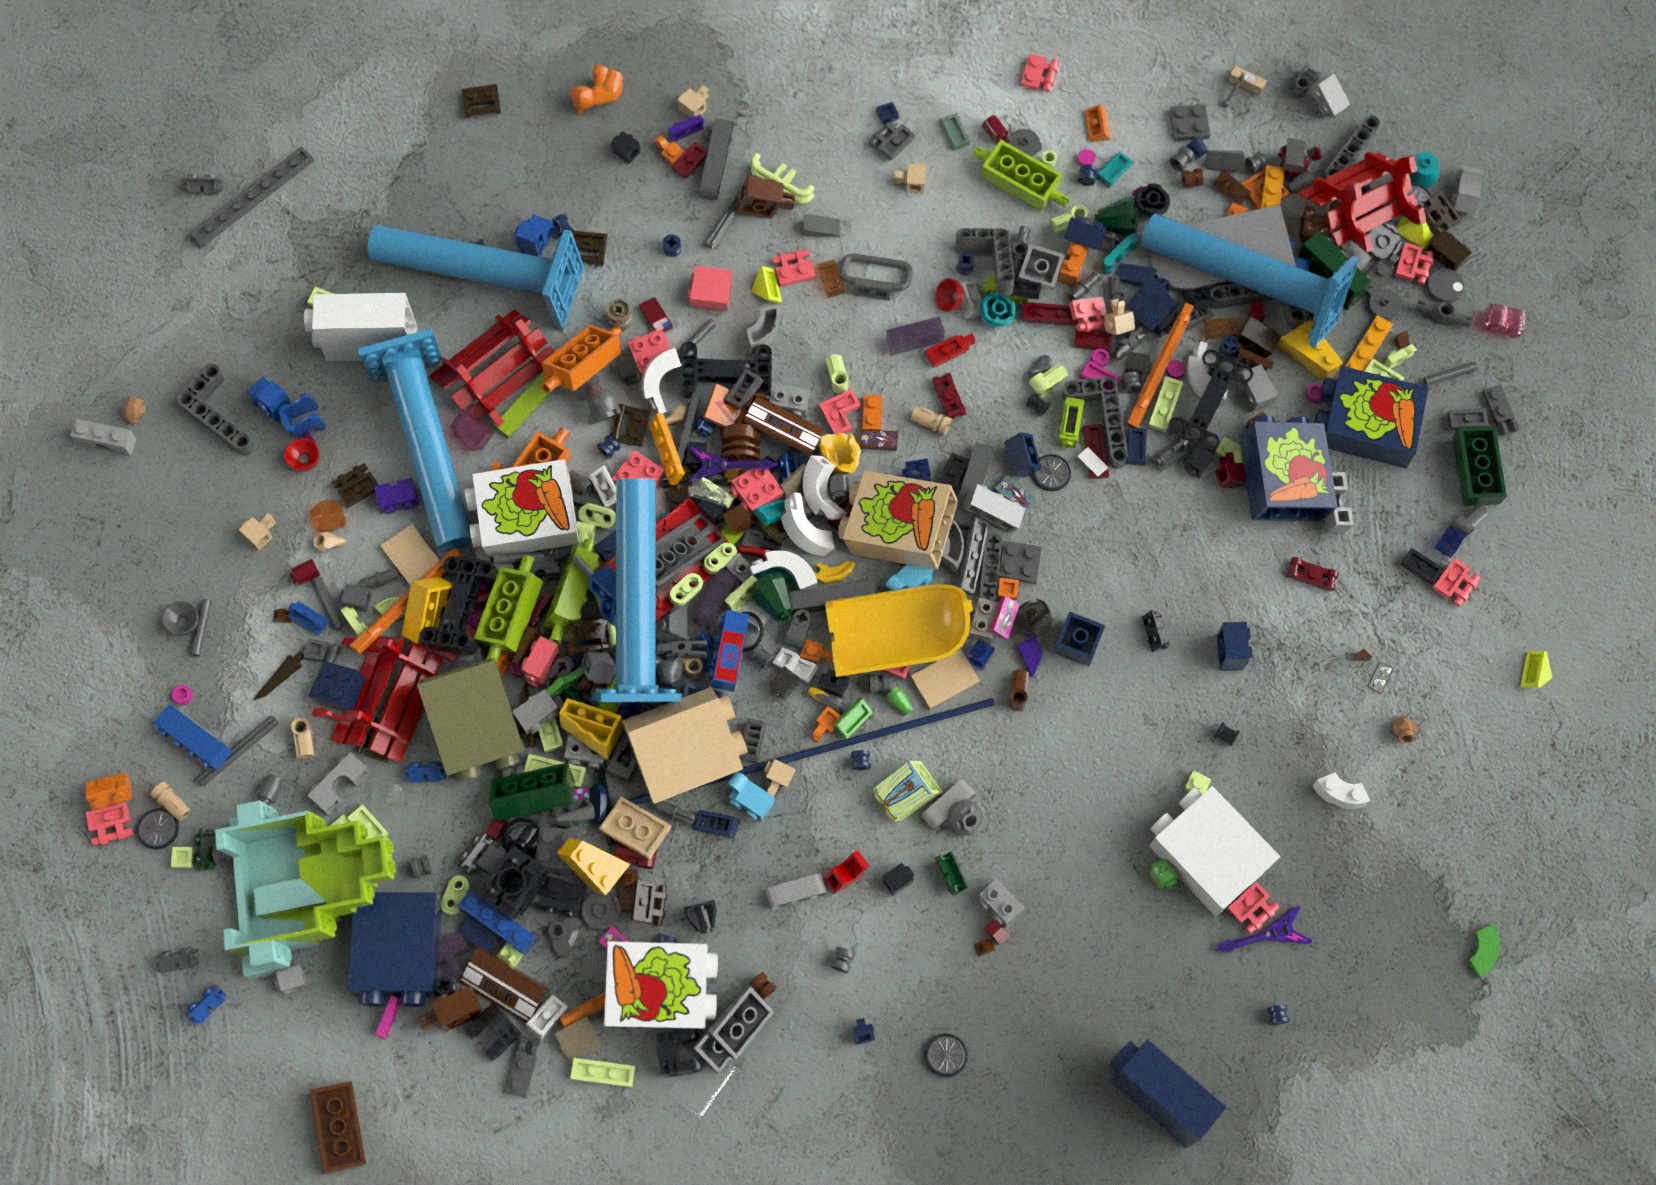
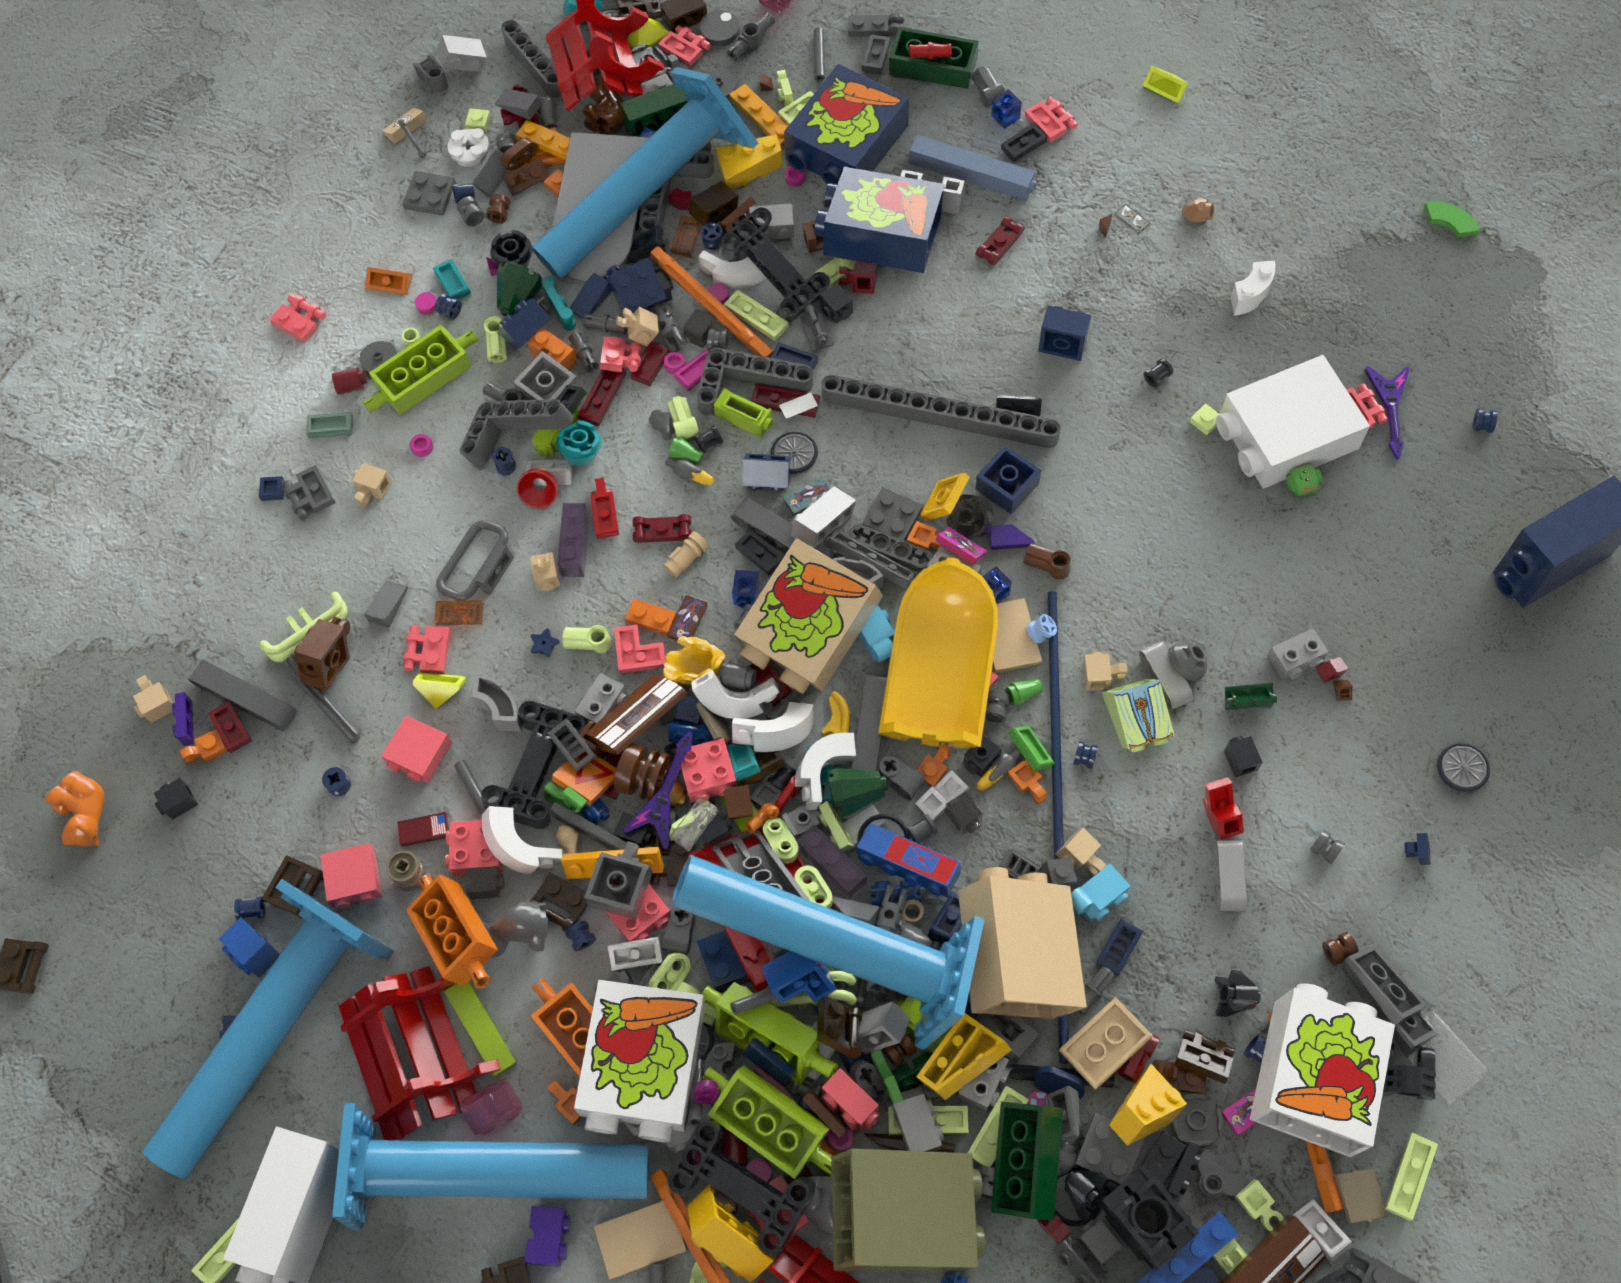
camera: 65 degrees left, 5 degrees down
(514, 560) = (705, 1092): none -> magenta tile
(550, 598) = (769, 1062): none -> dark blue tile
(552, 965) = (1257, 1203): none -> yellowish green plate
(604, 281) = (351, 876): none -> coral brick
(657, 454) = (612, 870): none -> dark grey hinge
(704, 398) = (564, 797): none -> bright green tile
(738, 542) = (767, 812): none -> orange arm
(752, 761) = (1059, 871): none -> dark grey brick
(826, 340) = (547, 648): none -> dark blue plate
(880, 324) = (545, 571): none -> tan brick
(935, 752) = (1099, 672): none -> tan brick
(960, 201) = (421, 445): none -> dark pink tile
(960, 699) = (1041, 629): none -> light blue wheel
(1005, 400) = (689, 471): none -> dark grey piece
(1021, 389) = (683, 450): none -> bright green cone
(1045, 593) = (944, 497): none -> yellow tile
(1126, 579) = (948, 418): none -> dark grey beam
(1247, 126) = (466, 137): none -> white plate
(1247, 174) = (519, 154): none -> reddish brown beam
(1274, 132) = (478, 119): none -> yellowish green plate
(1377, 531) = (972, 167): none -> sand blue brick
(1475, 458) = (930, 50): none -> red pin

